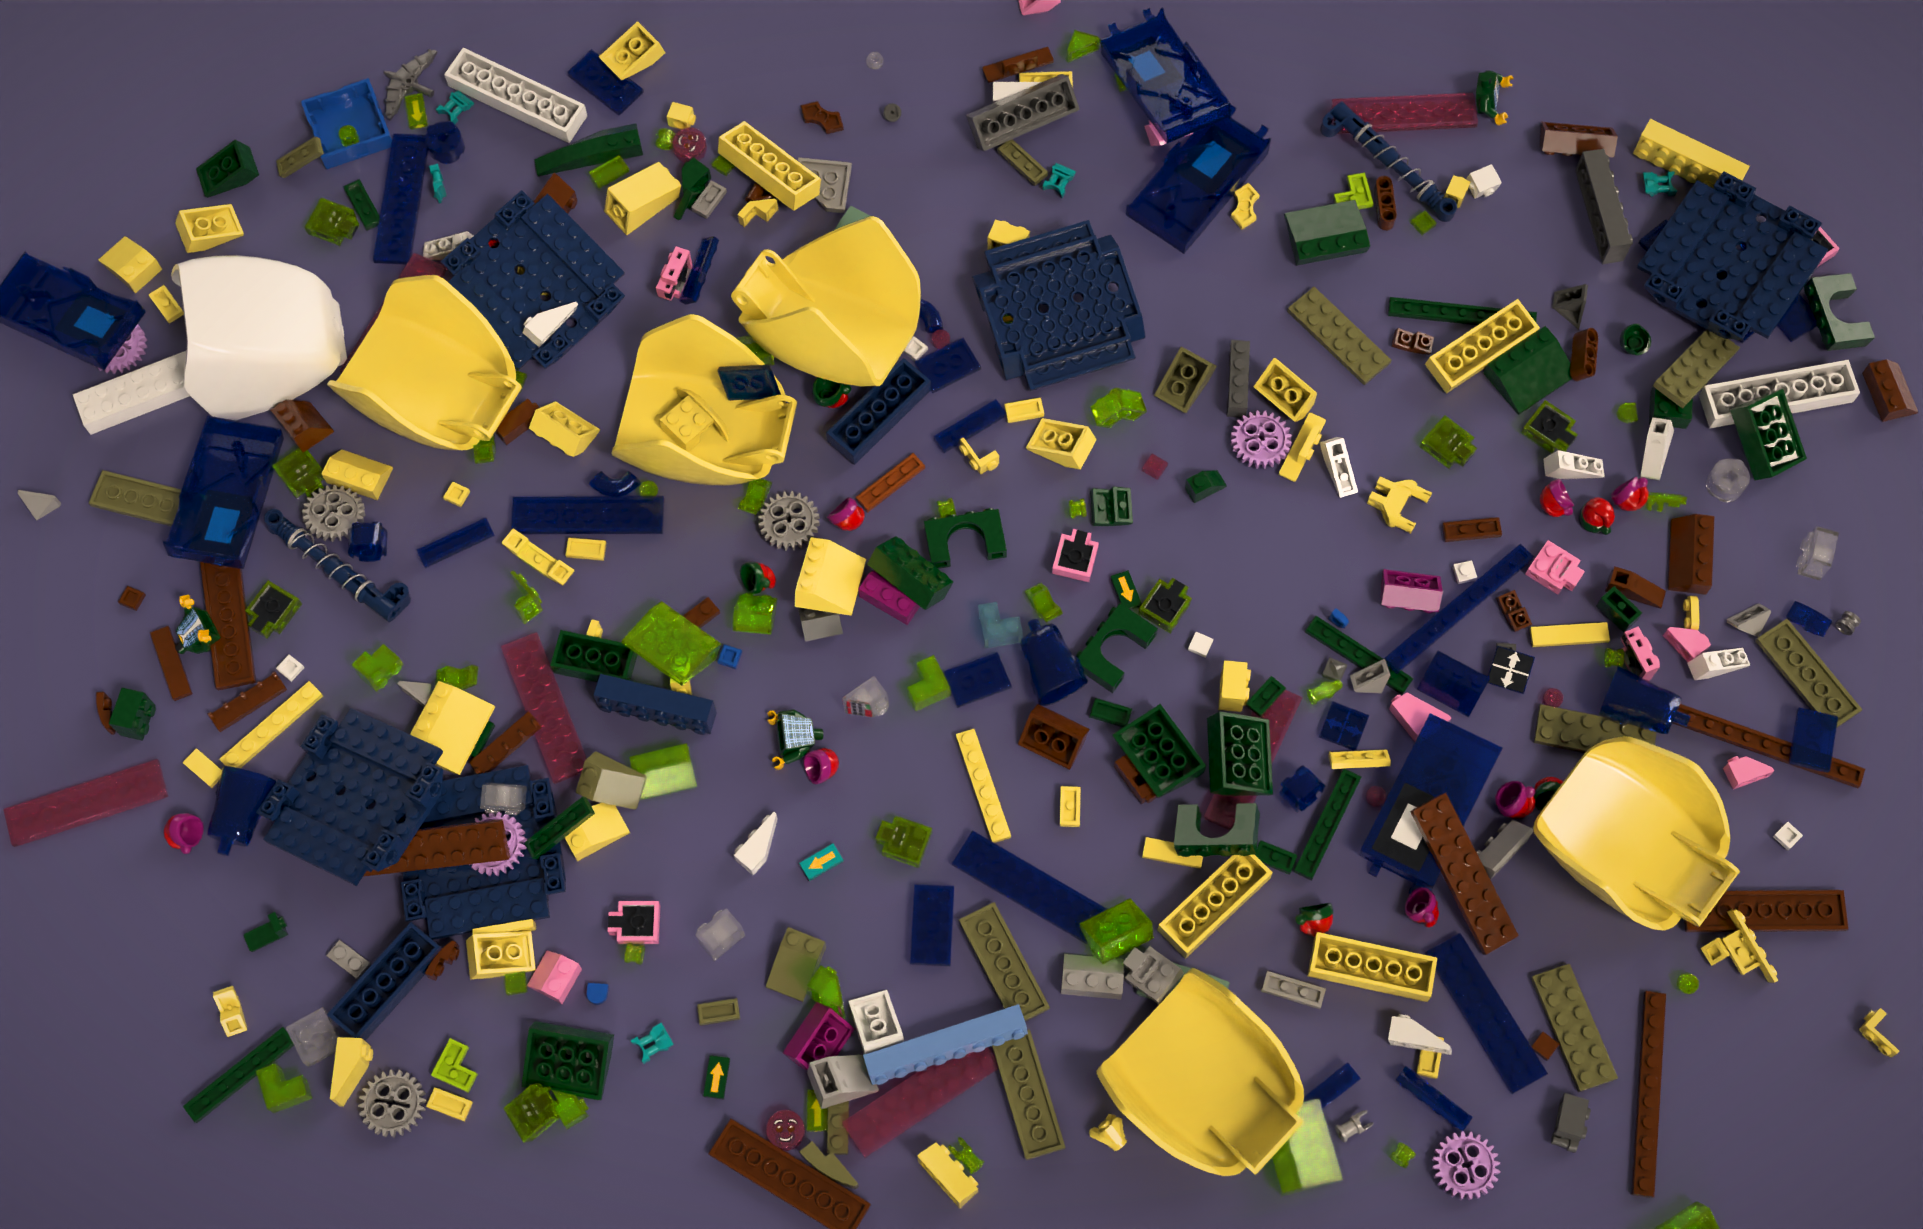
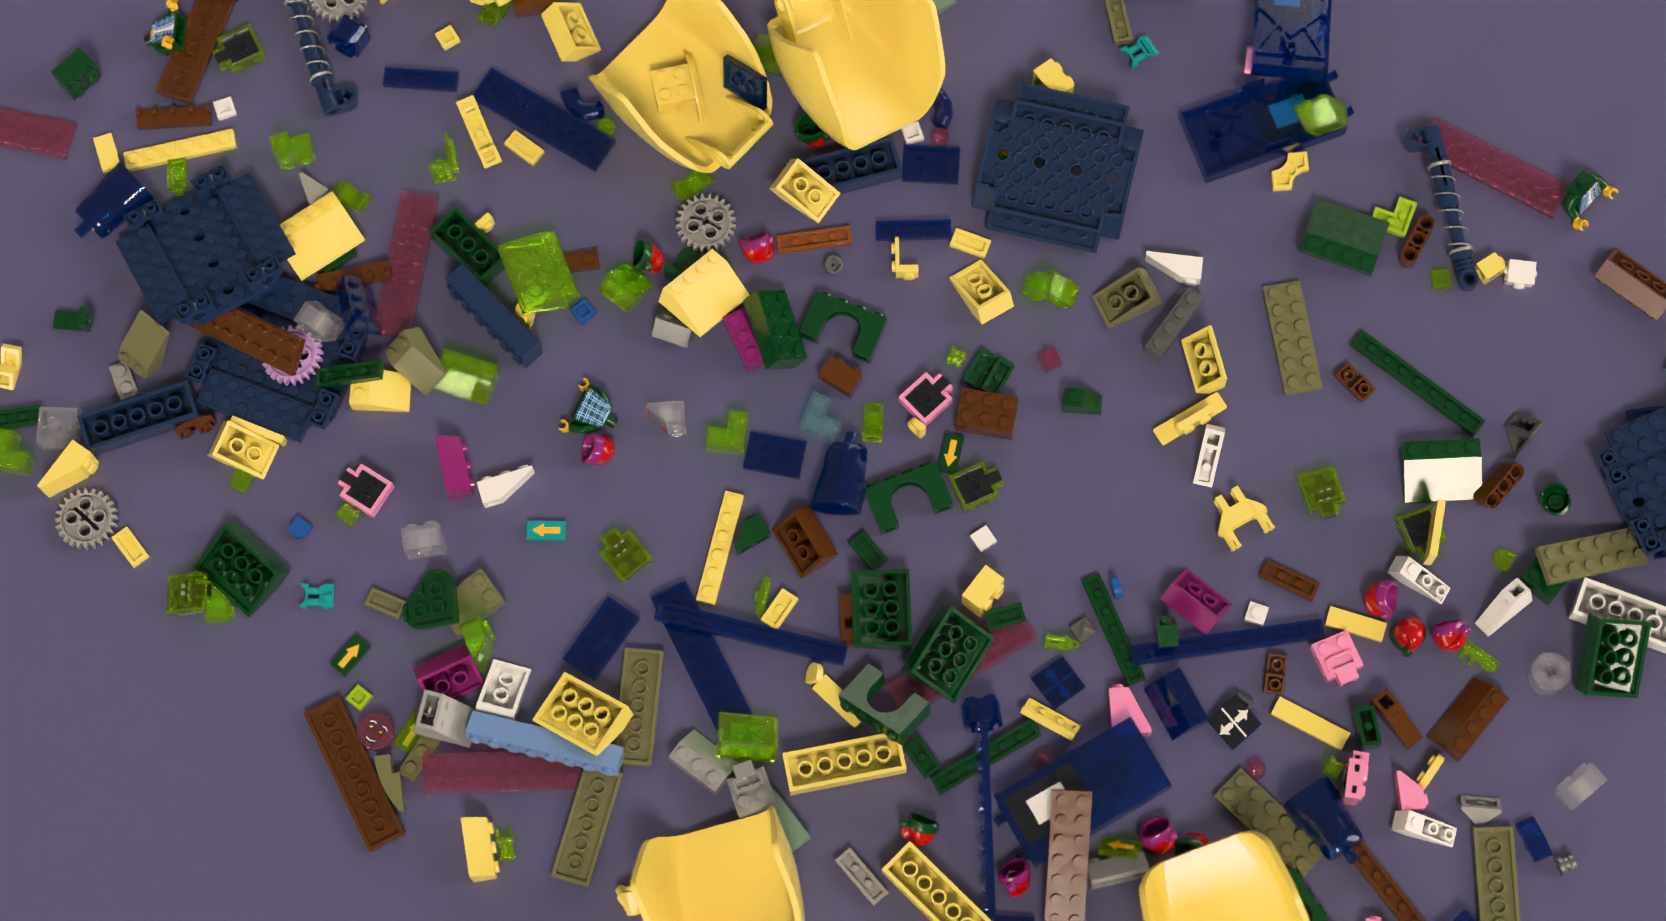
camera: 35 degrees right, 5 degrees up
(104, 707) = (59, 54): reddish brown slope -> none
(171, 663) = (134, 48): reddish brown tile -> none
(183, 831) = (59, 197): magenta piece -> none
(284, 749) = (177, 175): none -> clear neon green plate
(351, 914) = (144, 346): none -> olive slope
(449, 1068) = (147, 517): lime plate -> none
(526, 766) = (357, 306): none -> clear blue slope
(555, 976) = (274, 495): bright pink slope -> none
(705, 854) = (455, 467): none -> magenta slope
(748, 1109) = (359, 697): none -> lime tile
(764, 983) = (433, 603): none -> dark green plate
(792, 567) = (686, 260): none -> dark green bracket
(859, 441) = (804, 190): none -> light yellow slope
(920, 493) = (832, 264): none -> dark grey tile
(946, 508) = (845, 290): clear neon green wheel -> none
(963, 998) = (583, 714): none -> light yellow slope
(990, 581) = (840, 376): none -> reddish brown brick
(1003, 755) = (751, 533): none -> dark green slope
(1047, 804) = (762, 596): none -> clear neon green plate
(1059, 840) = (750, 633): none -> clear blue plate
(1083, 585) = (917, 427): none -> light yellow tile
(1134, 539) = (986, 413): none -> reddish brown brick
(1136, 842) = (814, 673): none -> light yellow tile
(1209, 331) = (1179, 267): none -> white slope
(1246, 143) = (1322, 114): none -> clear neon green slope
(1258, 424) = (1149, 405): lavender gear -> none
(1363, 865) = (985, 808): none -> clear blue plate
(1371, 678) = (1108, 656): light grey slope -> none
(1407, 627) = (1166, 631): none -> dark green slope
(1481, 346) = (1409, 422): light yellow brick -> none
(1491, 829) = (1120, 847): none -> clear neon green tile
(1551, 531) = (1355, 624): none -> light yellow tile
(1566, 418) = (1434, 532): none -> light yellow tile
(1603, 206) = (1613, 360): dark grey brick -> none

